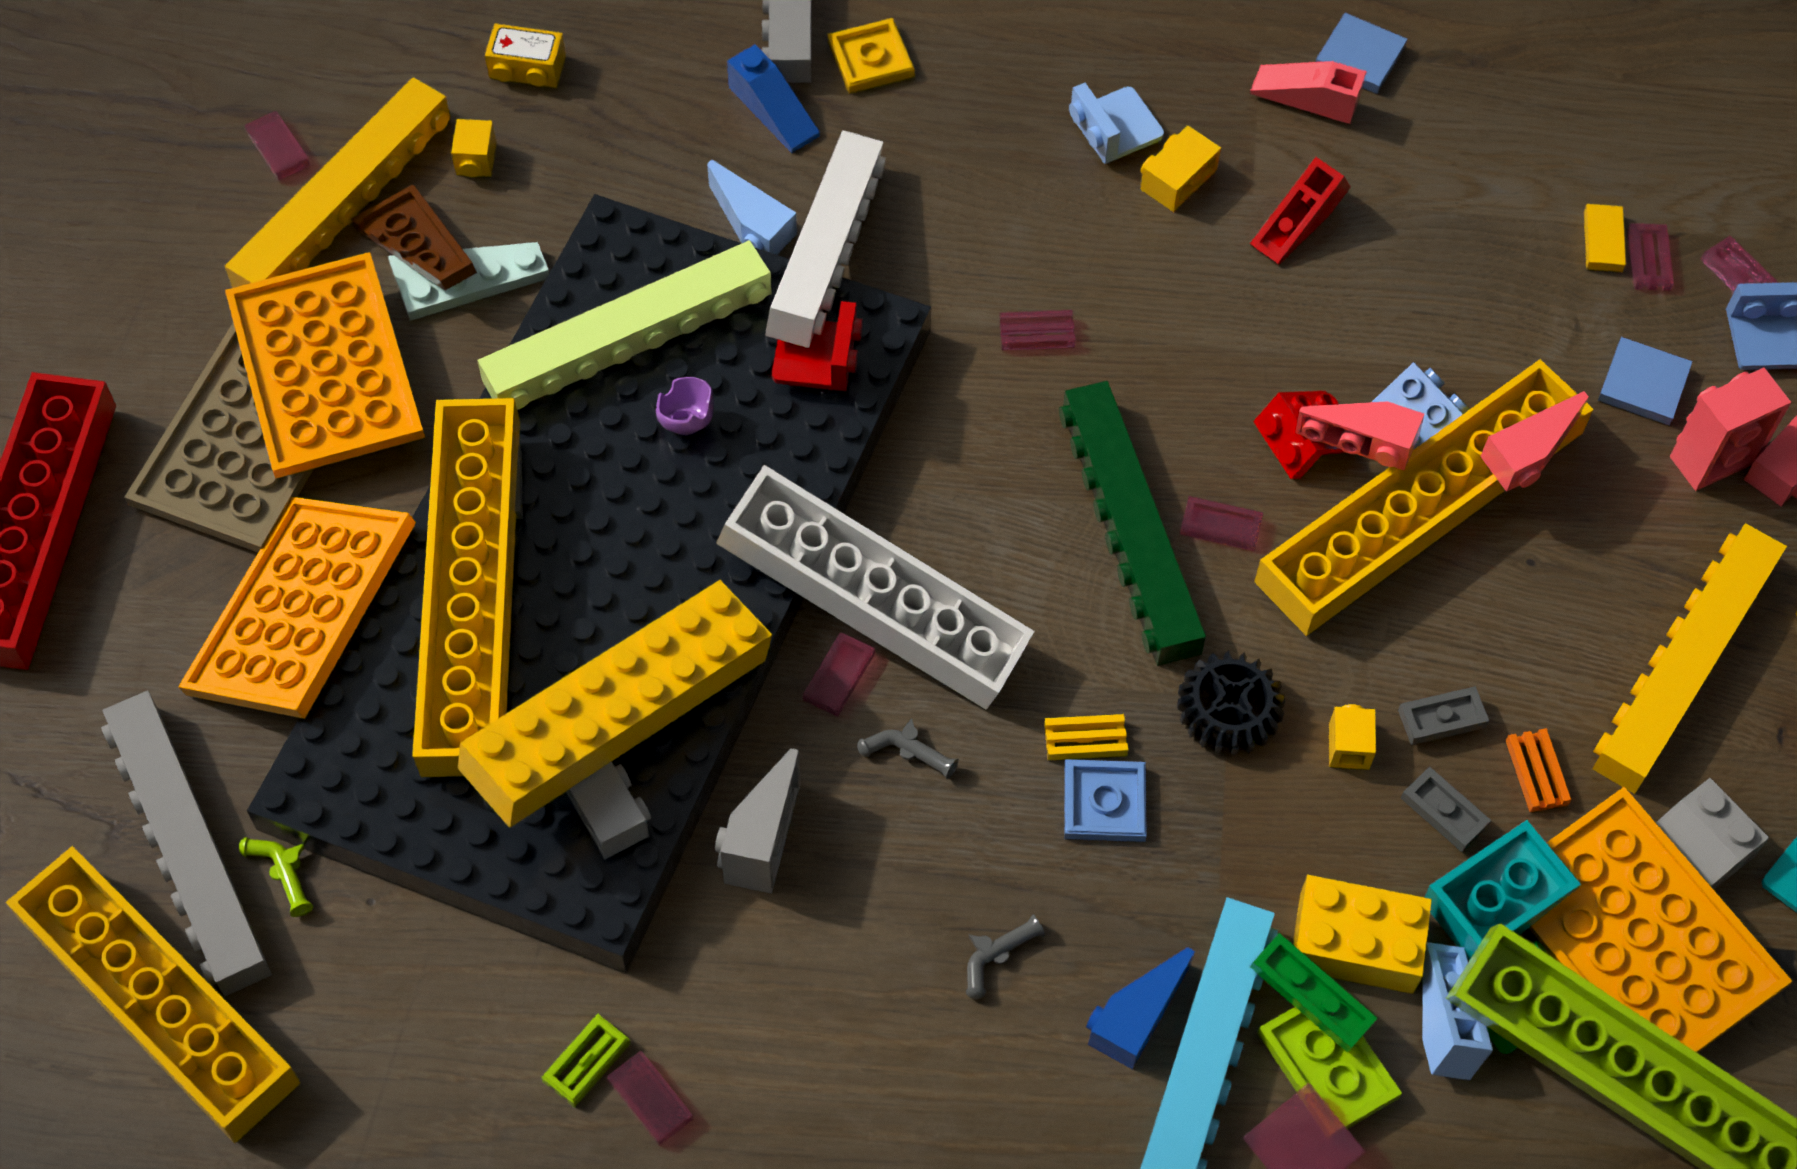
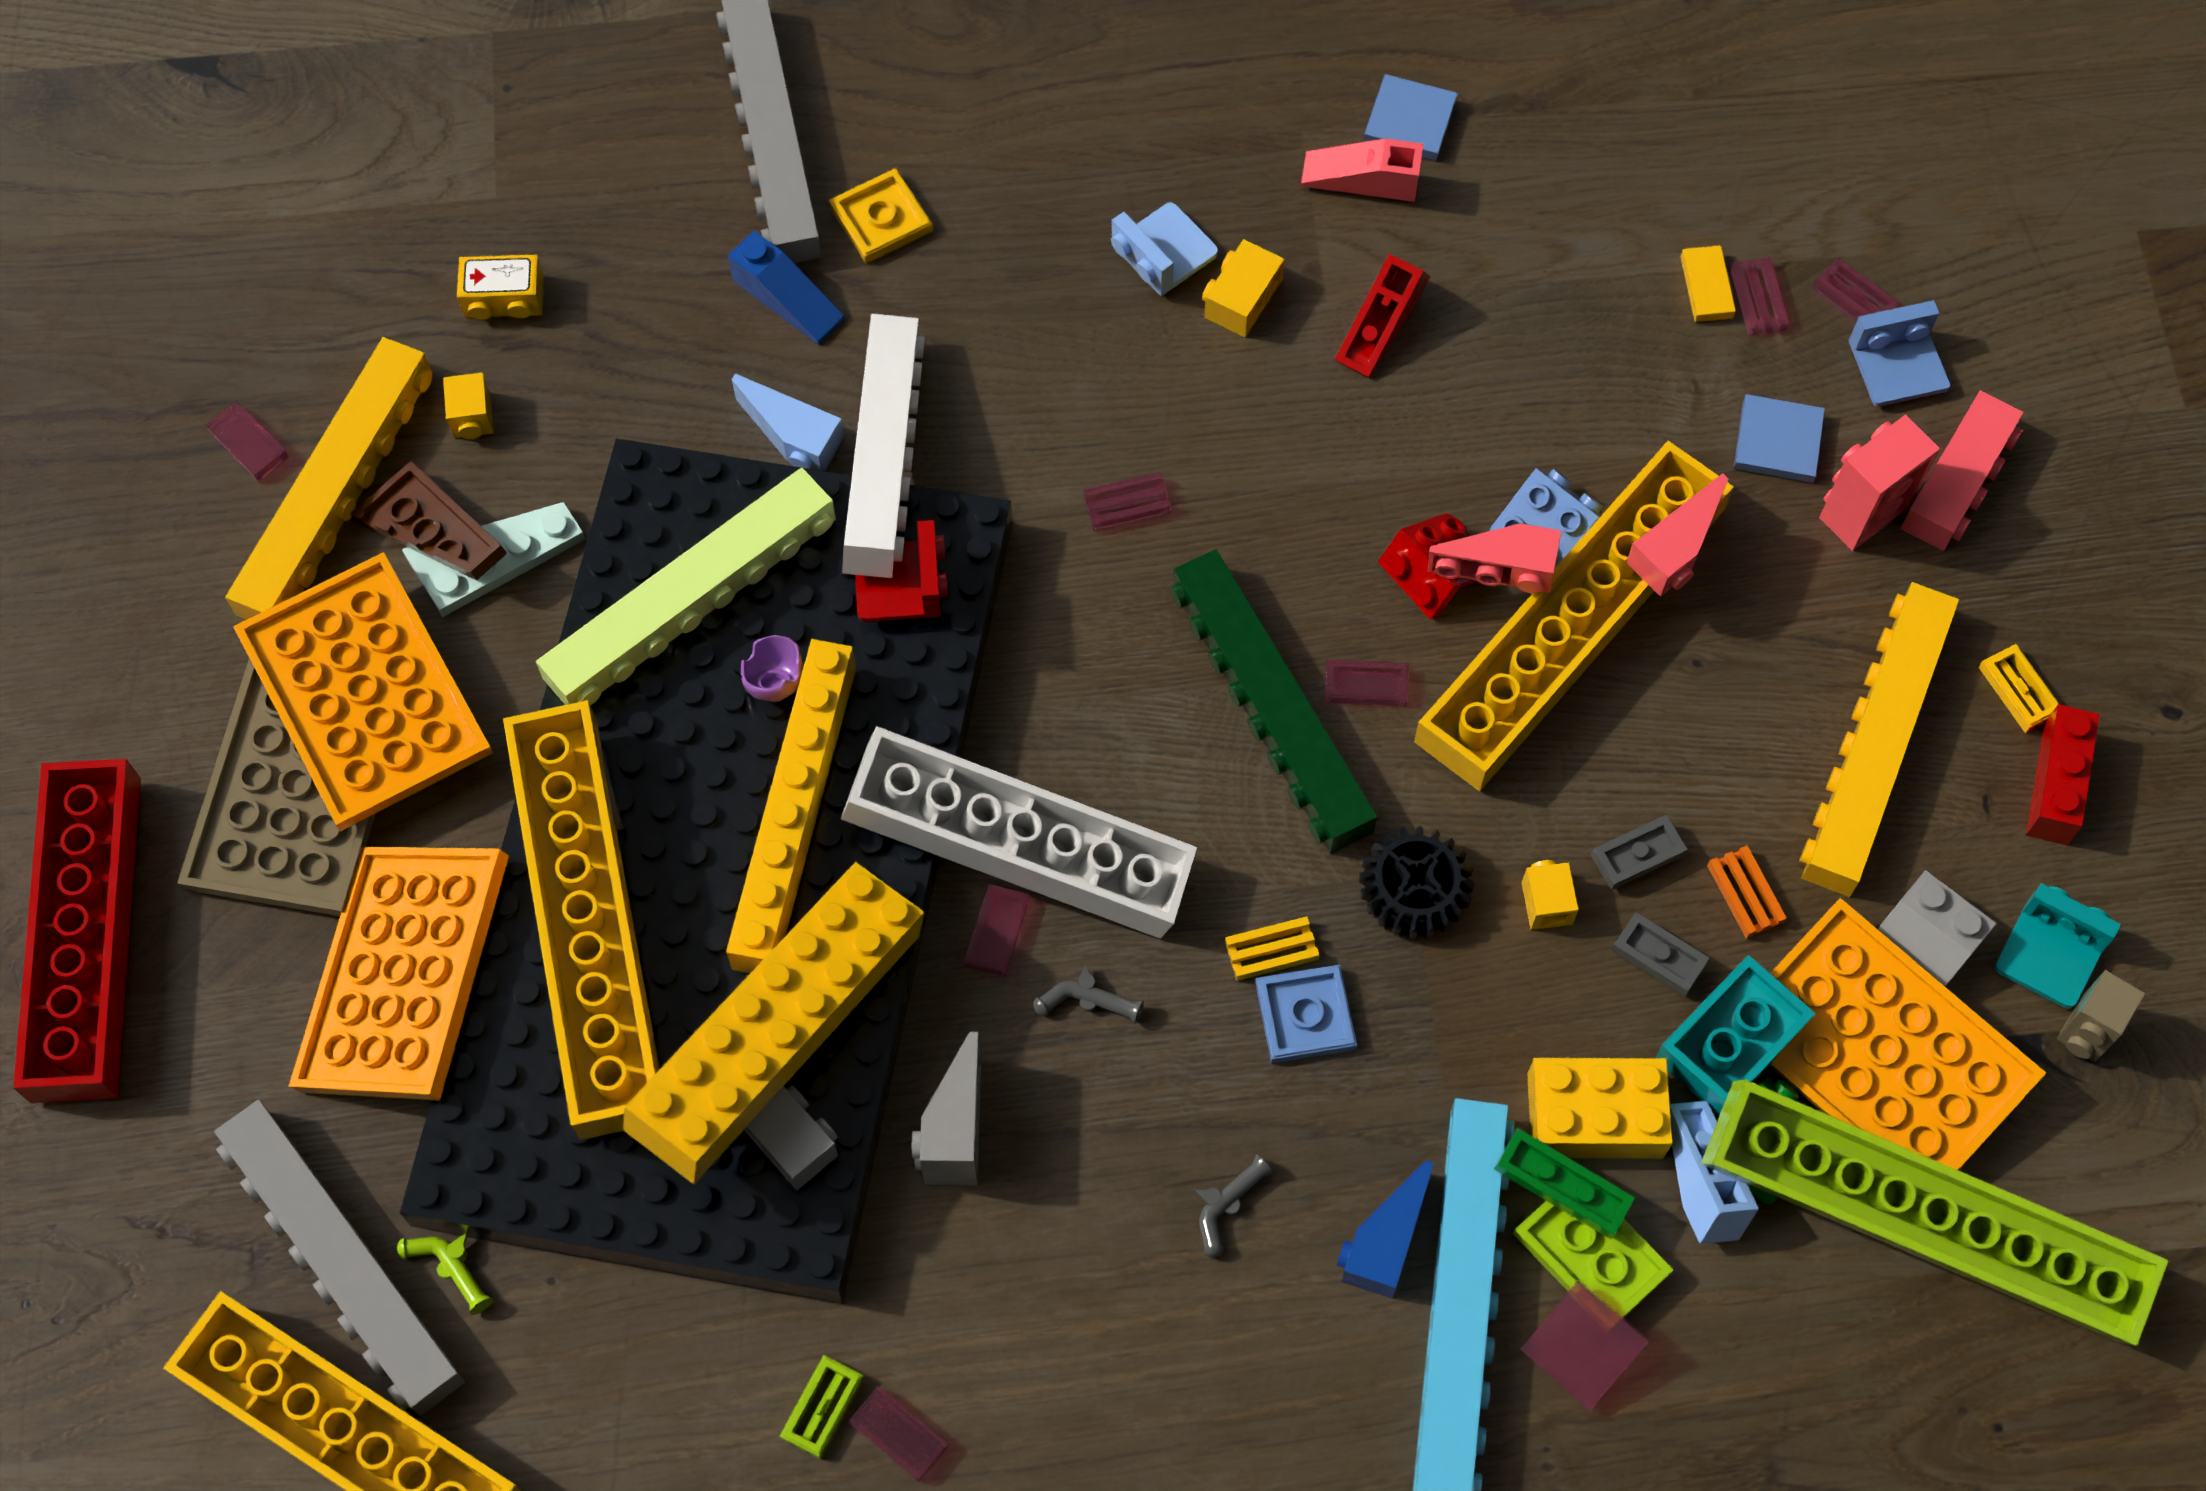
camera: 10 degrees left, 5 degrees up
(678, 520) = (792, 804): none -> yellow brick

